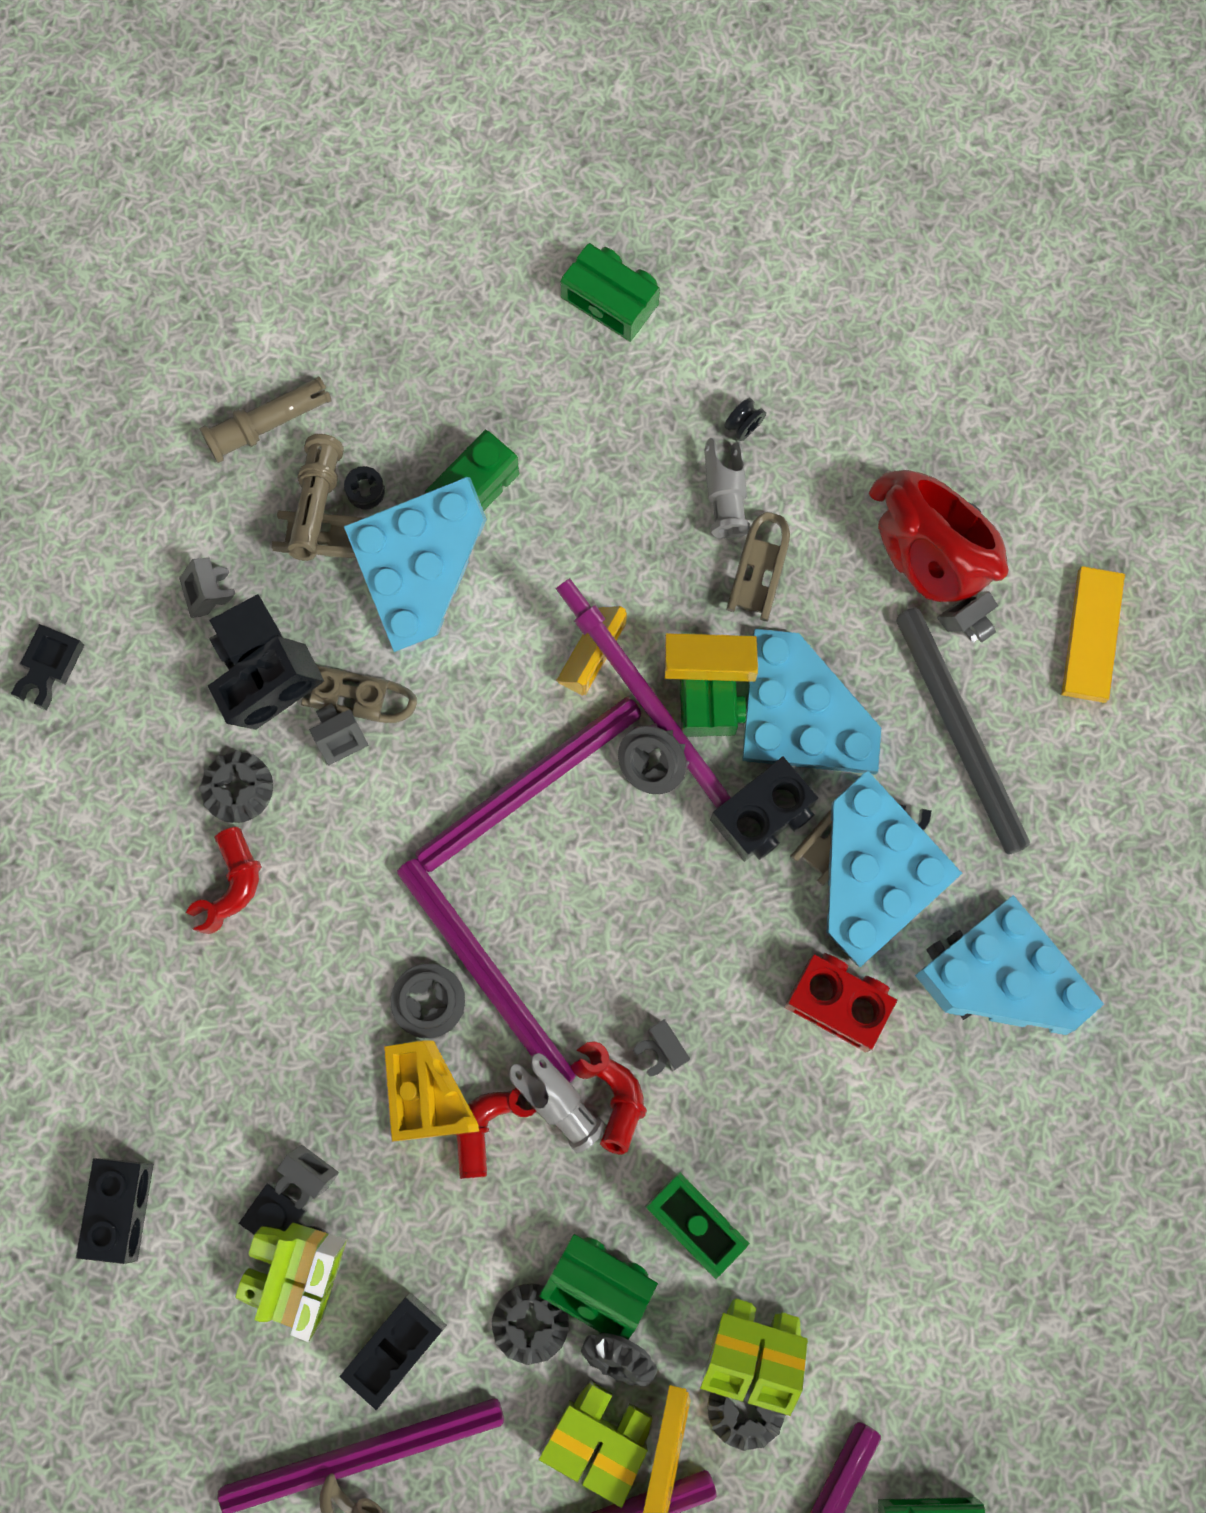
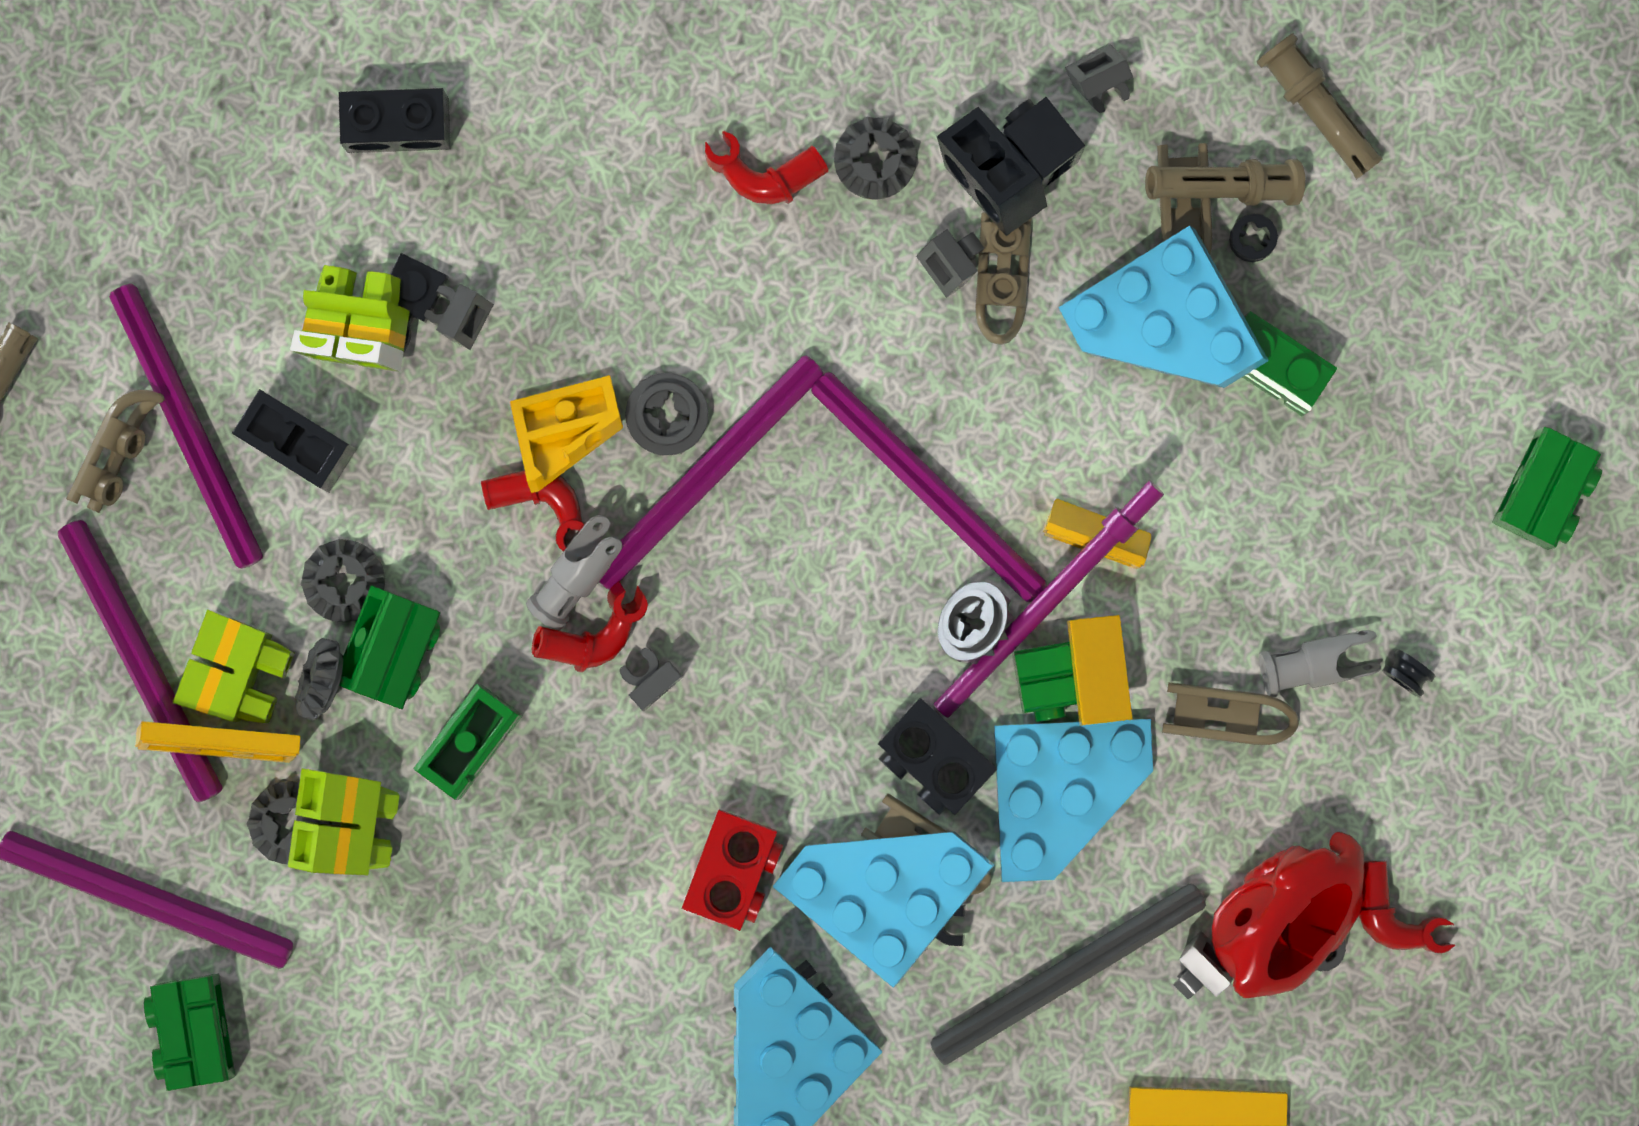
camera: 85 degrees right, 10 degrees up
(958, 461) = (1379, 917): none -> red piece

